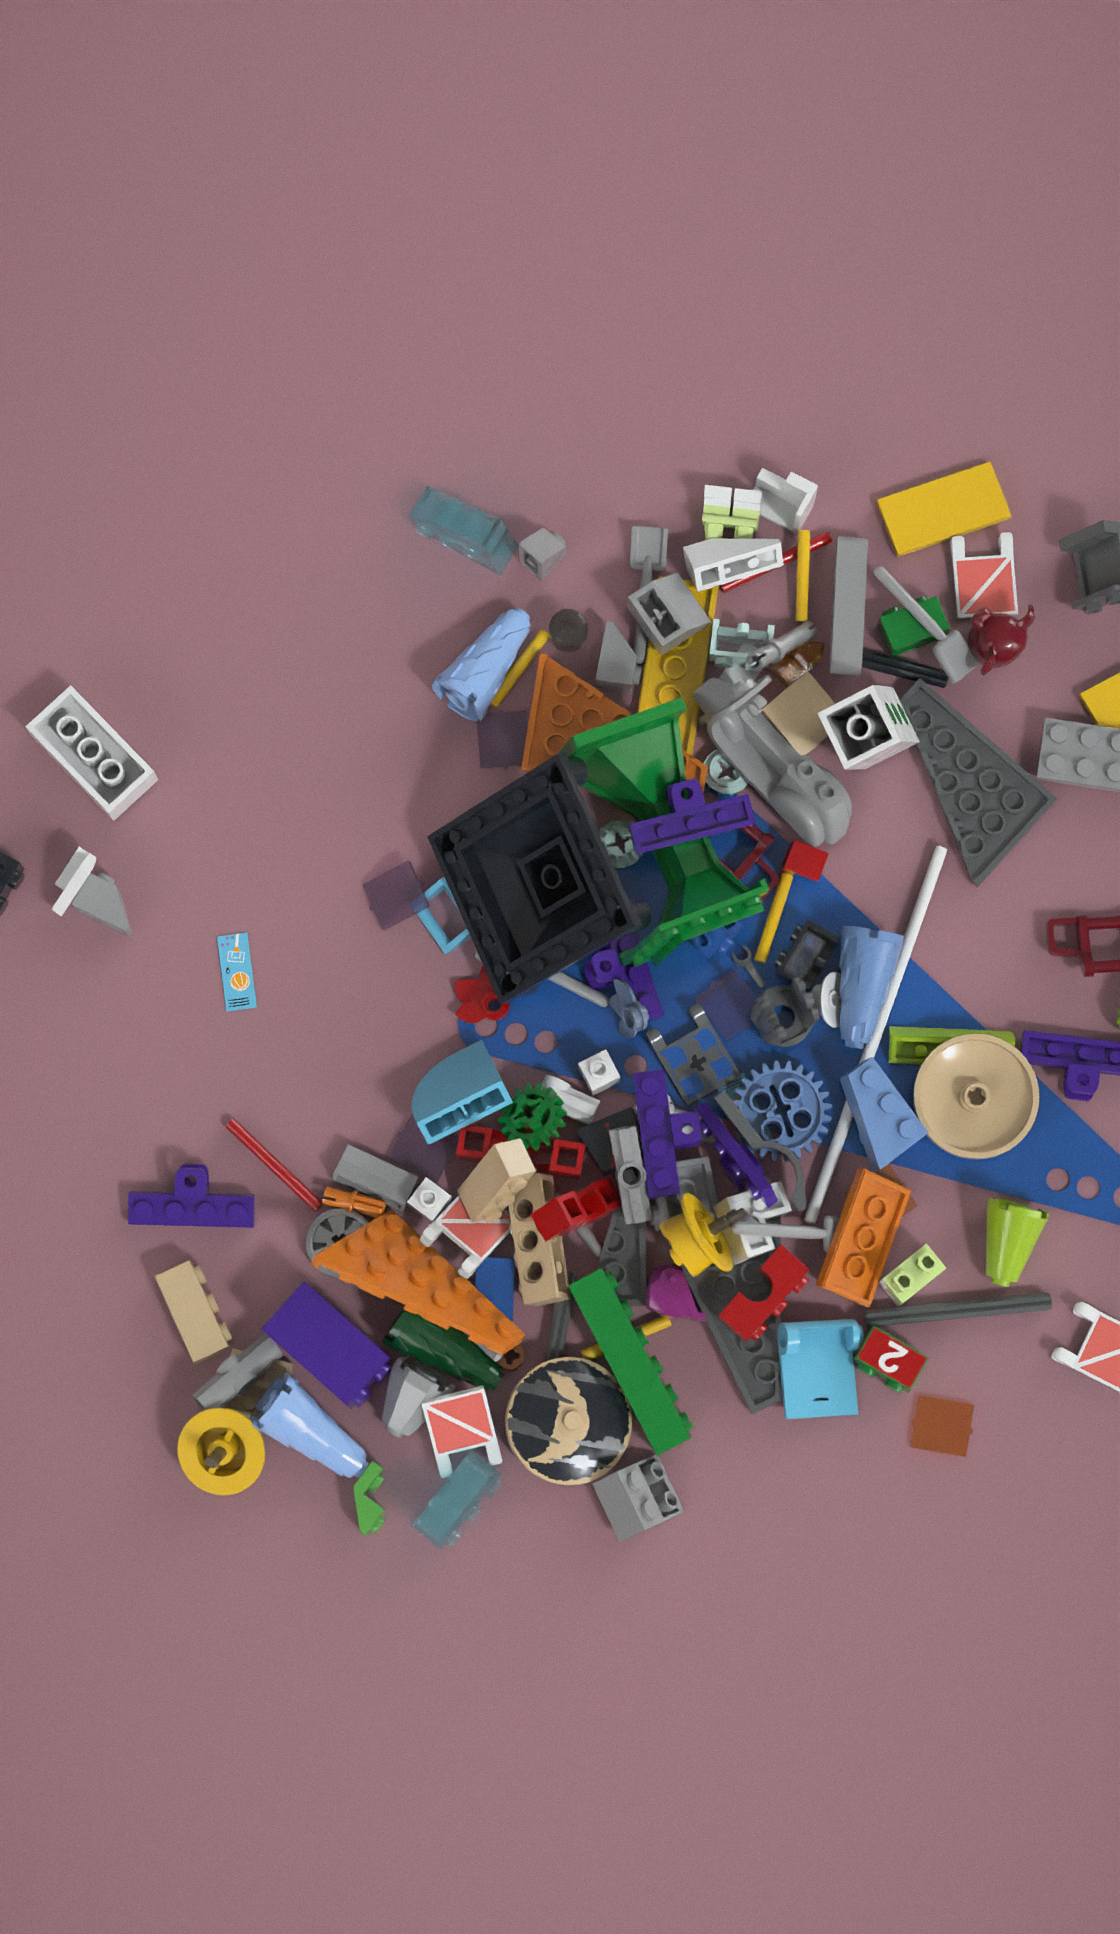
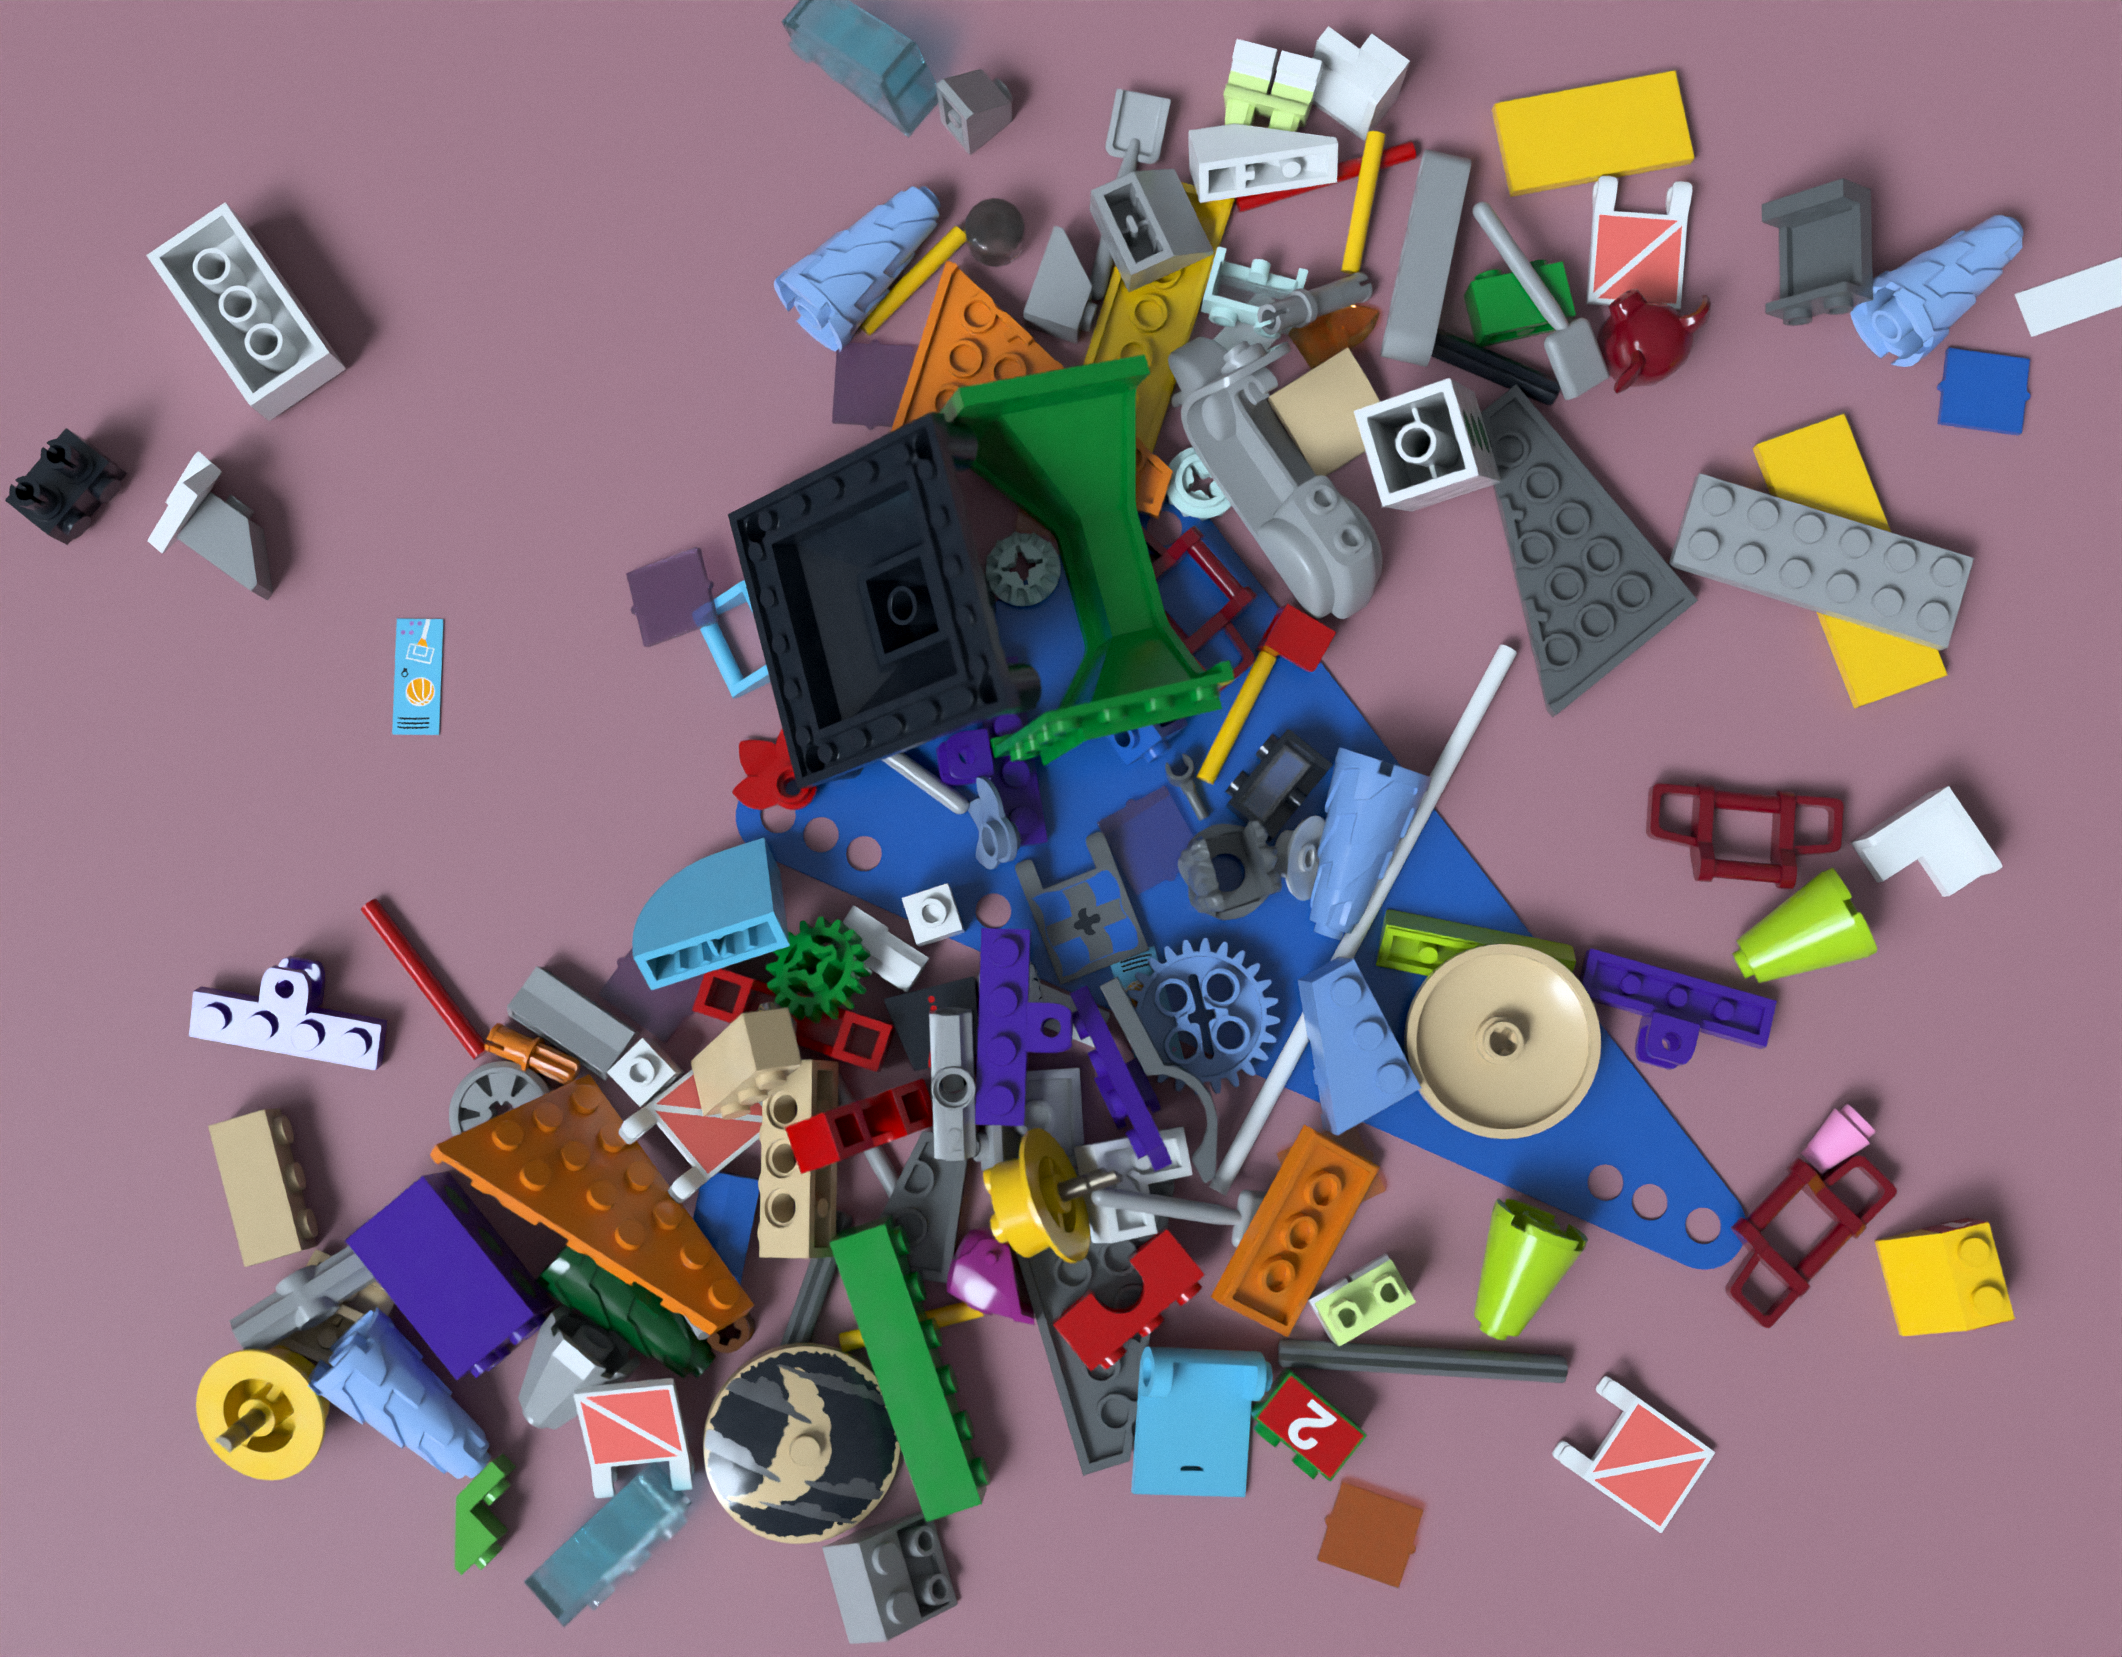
camera: 10 degrees right, 5 degrees up
(690, 818) = (1131, 547): dark purple plate -> none

